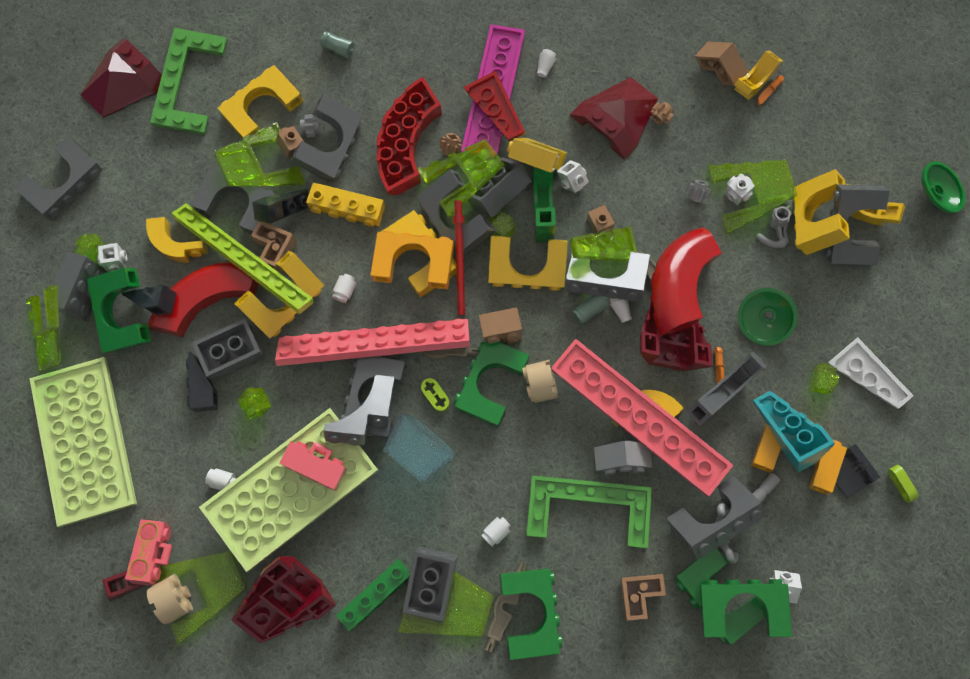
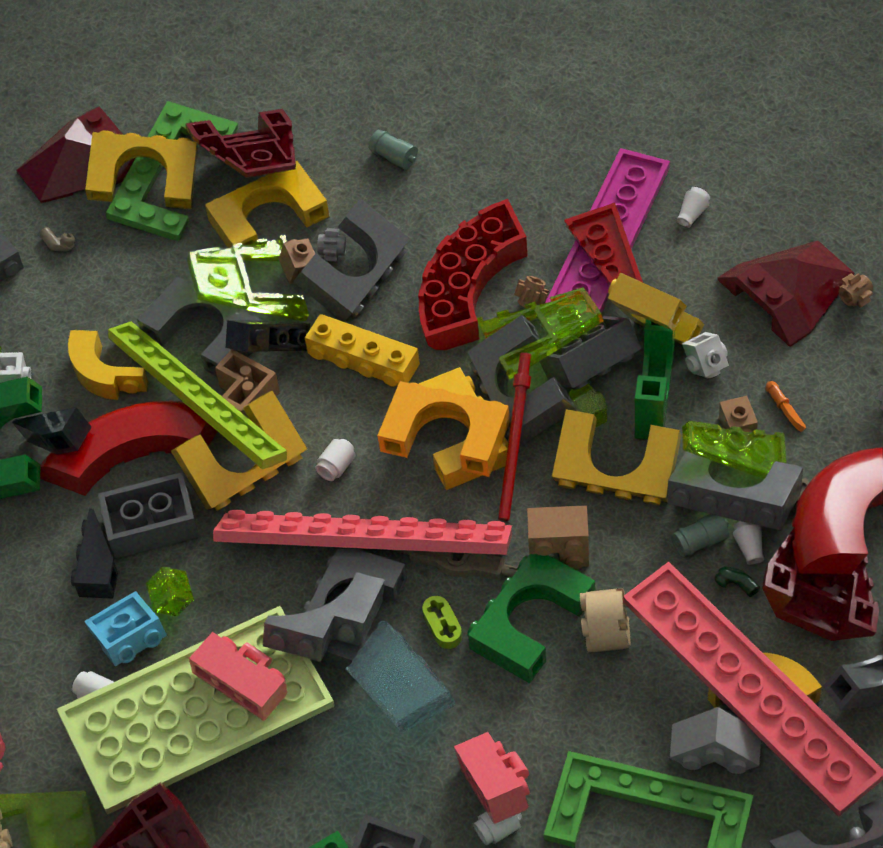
camera: 10 degrees right, 20 degrees down
(125, 148) = (54, 243): none -> dark tan arm
(144, 76) = (112, 150): none -> yellow arch
(231, 433) = (126, 629): none -> medium azure plate
(242, 62) = (251, 152): none -> dark red wedge
(493, 512) = (494, 776): none -> coral piece
(619, 334) = (739, 577): none -> dark green arm
(627, 203) = (783, 404): none -> orange piece

